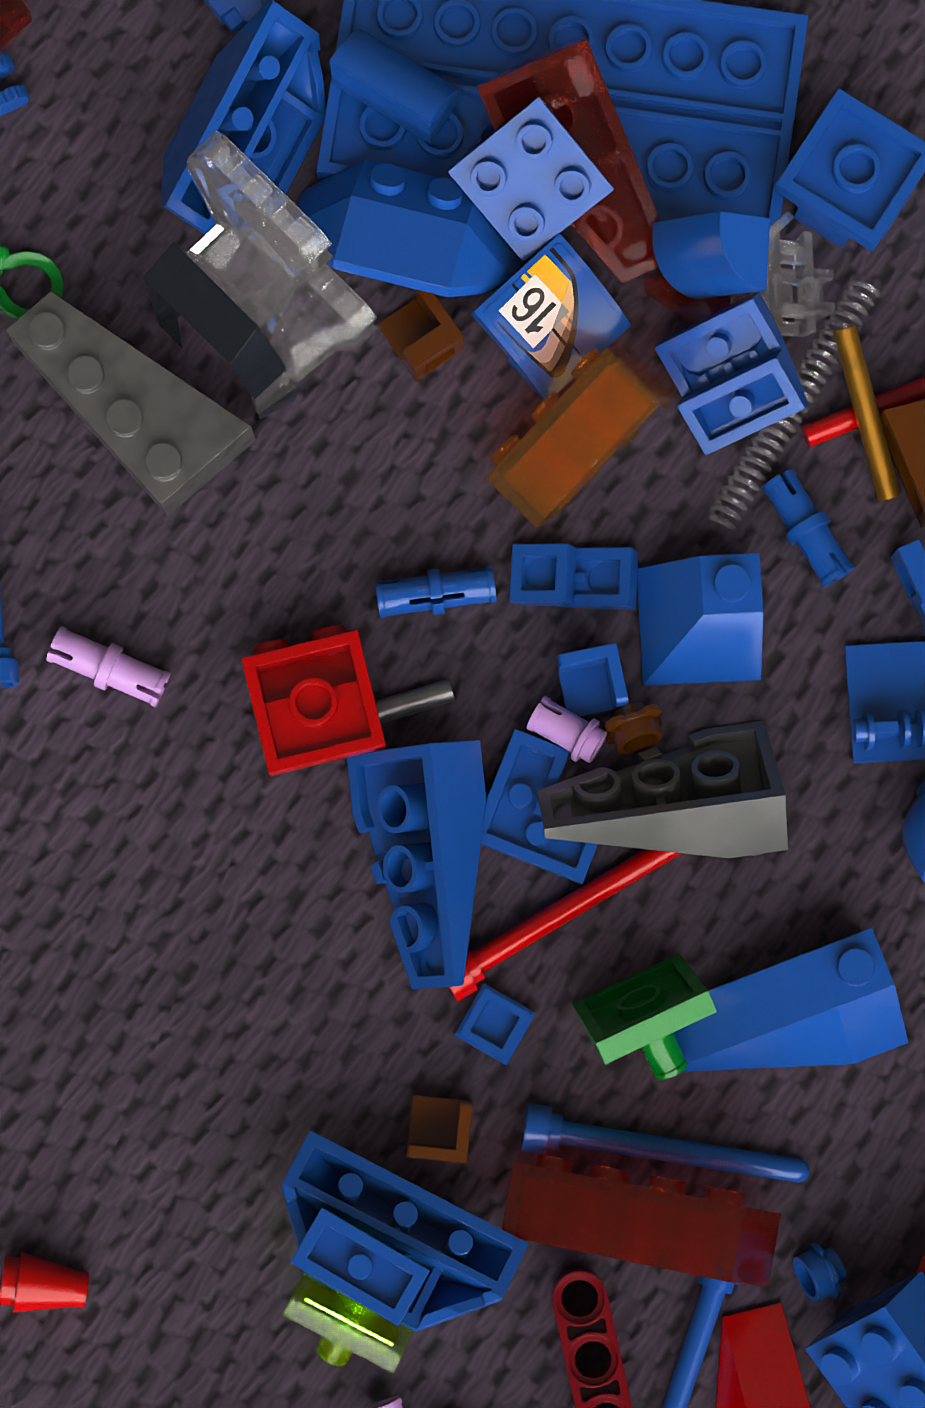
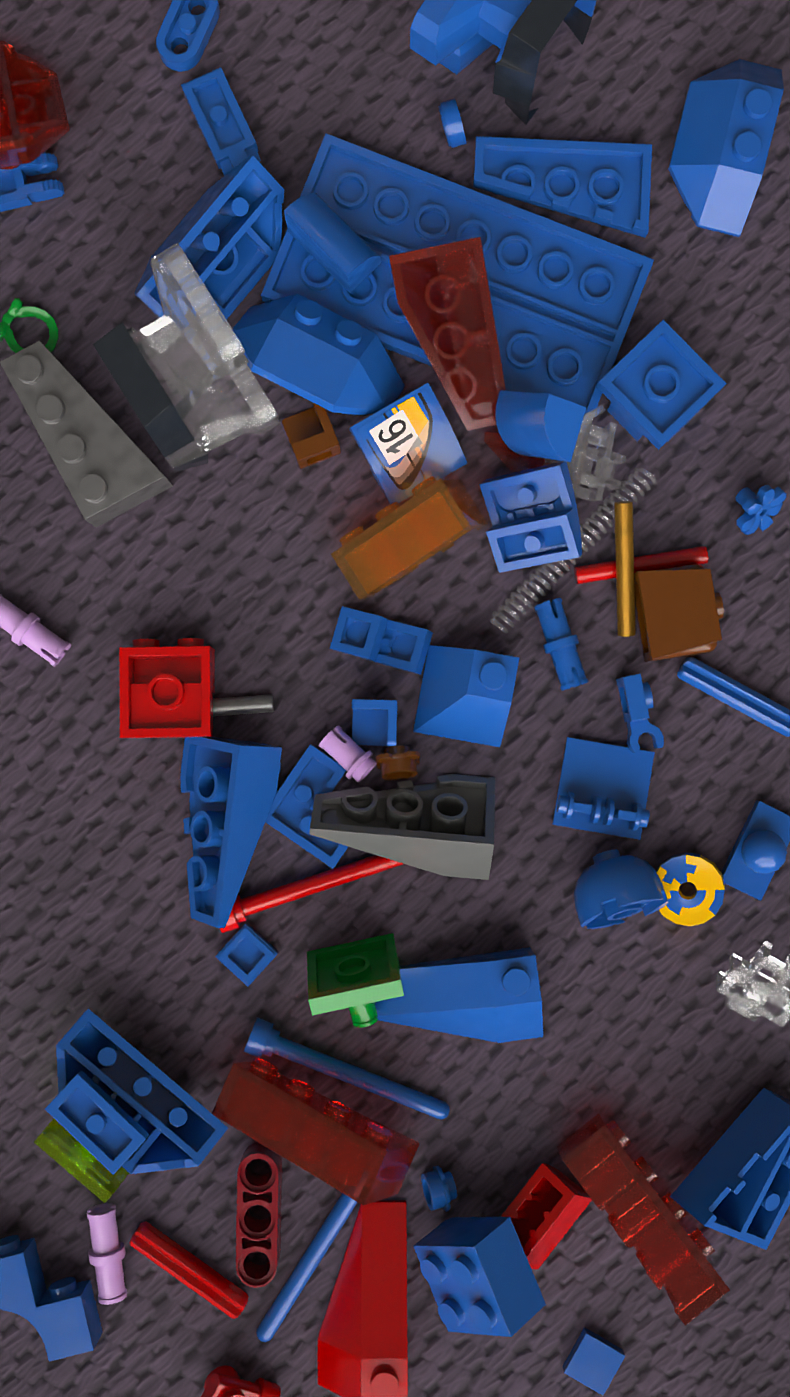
camera: 15 degrees right, 5 degrees up
(436, 591) = (277, 628): blue pin -> none
(439, 1129) = (187, 1024): reddish brown panel -> none
(530, 179) = (415, 336): hinge -> none

